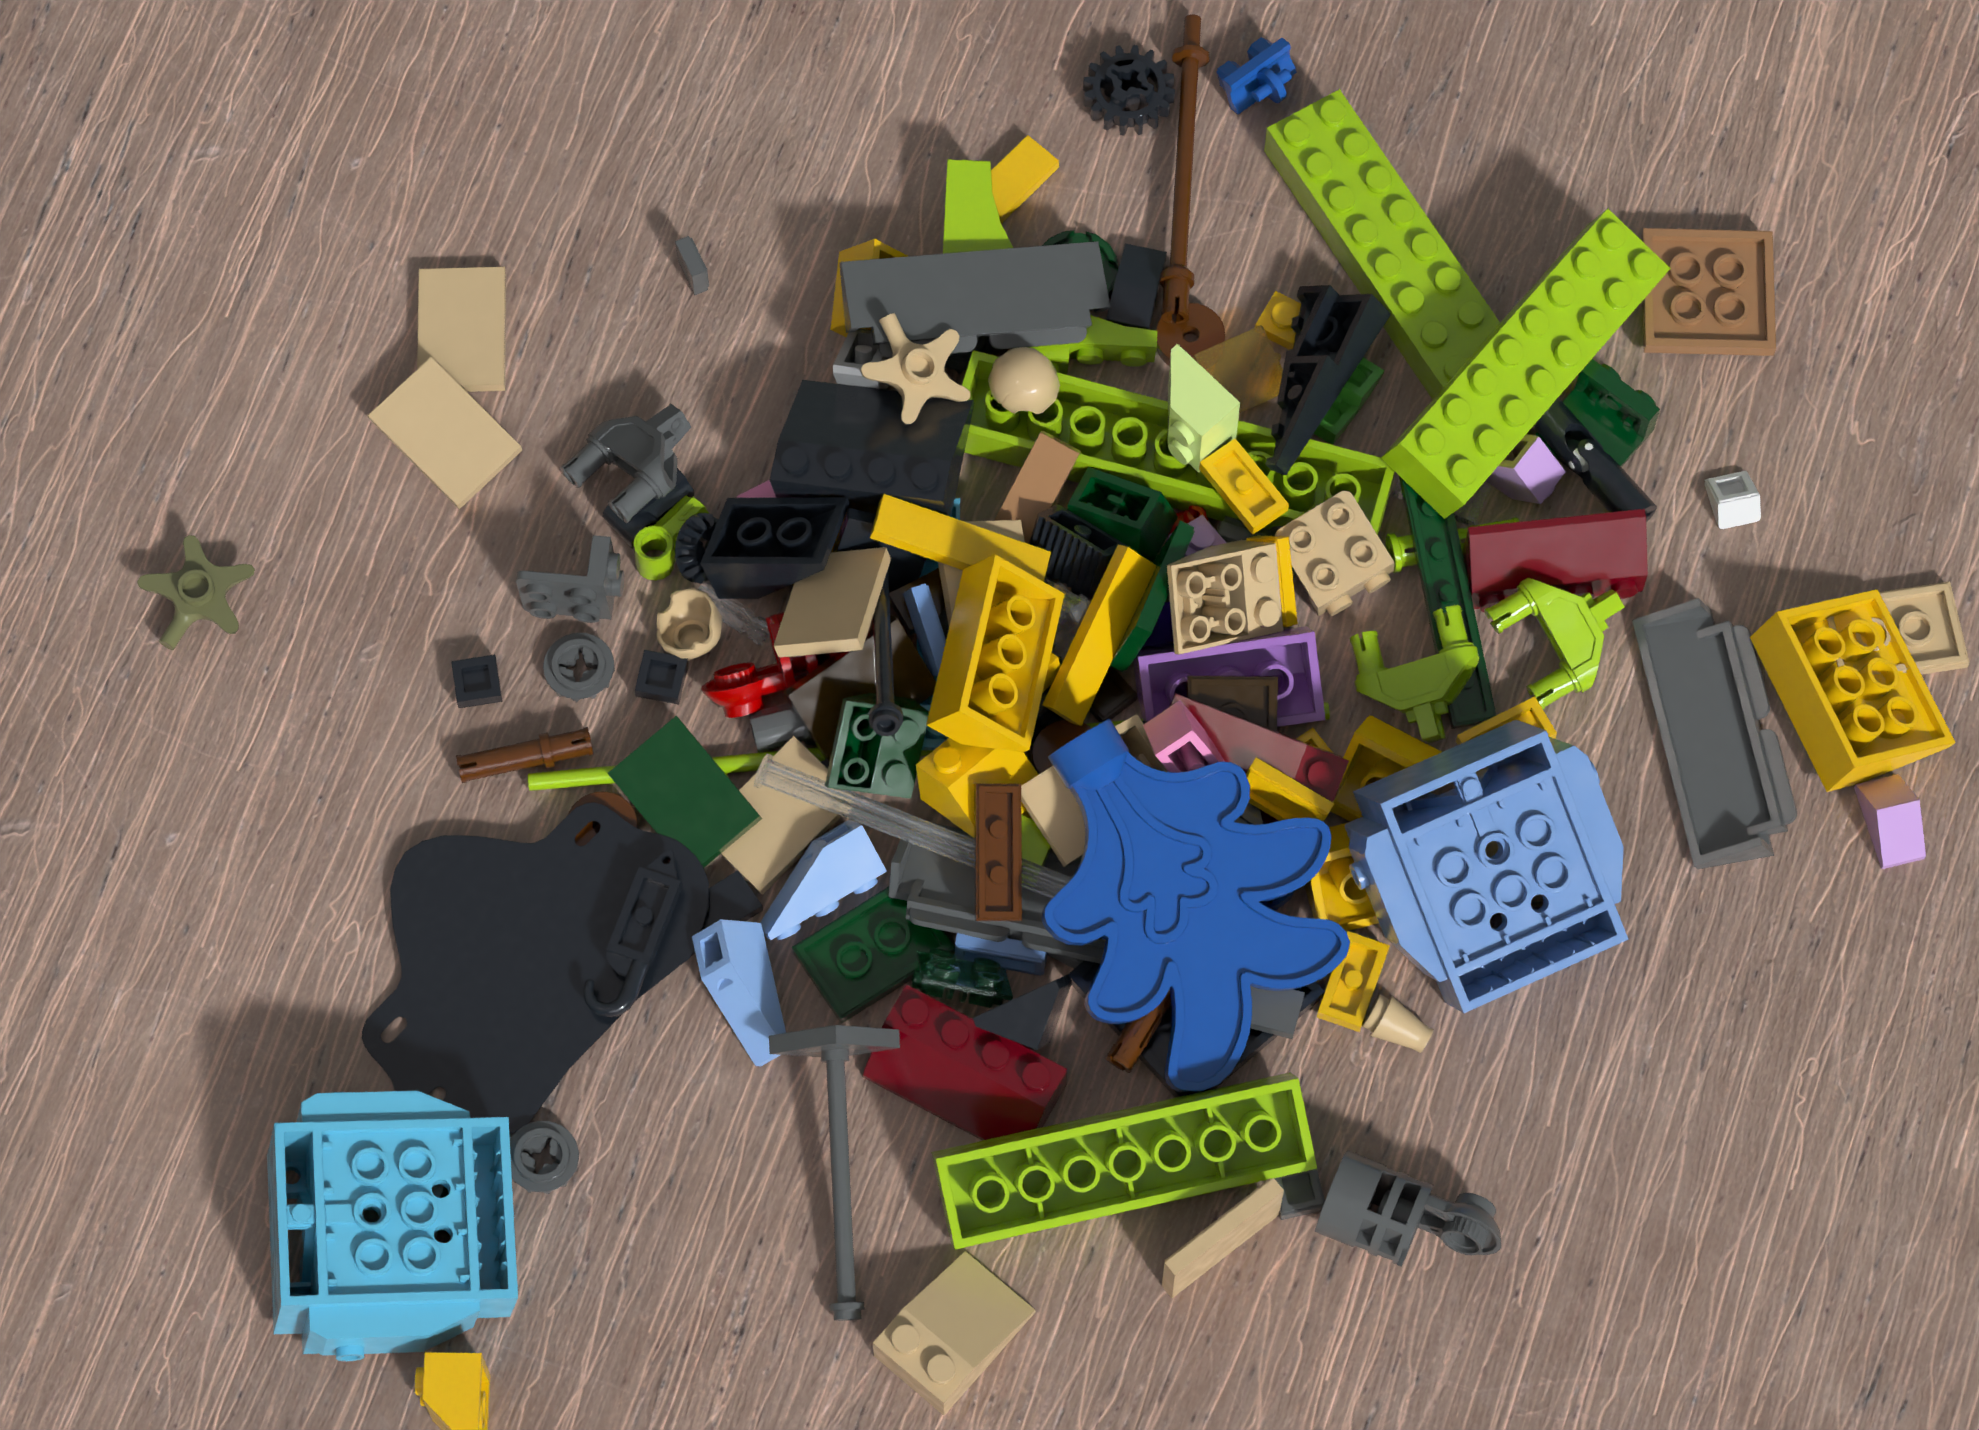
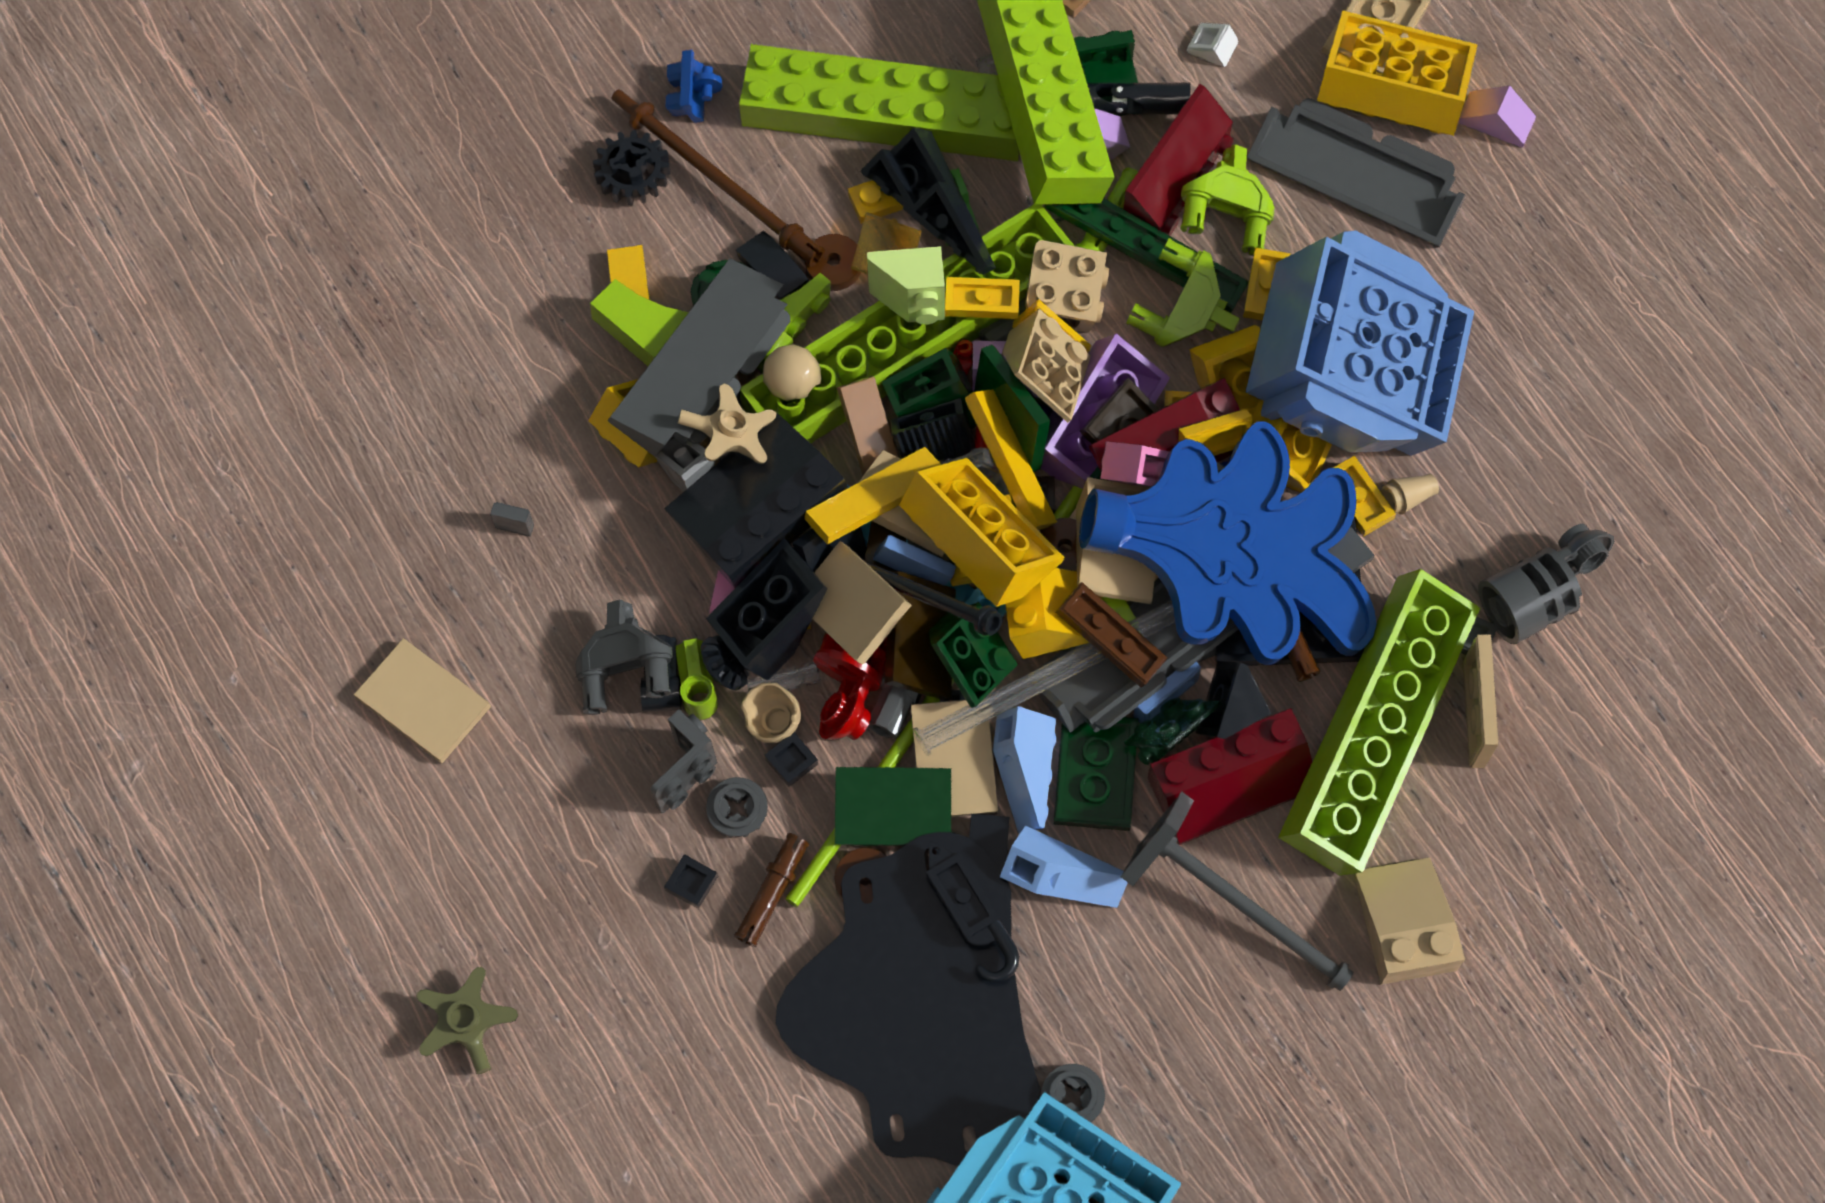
camera: 50 degrees left, 0 degrees up
(445, 433) = (490, 766): tan tile -> none

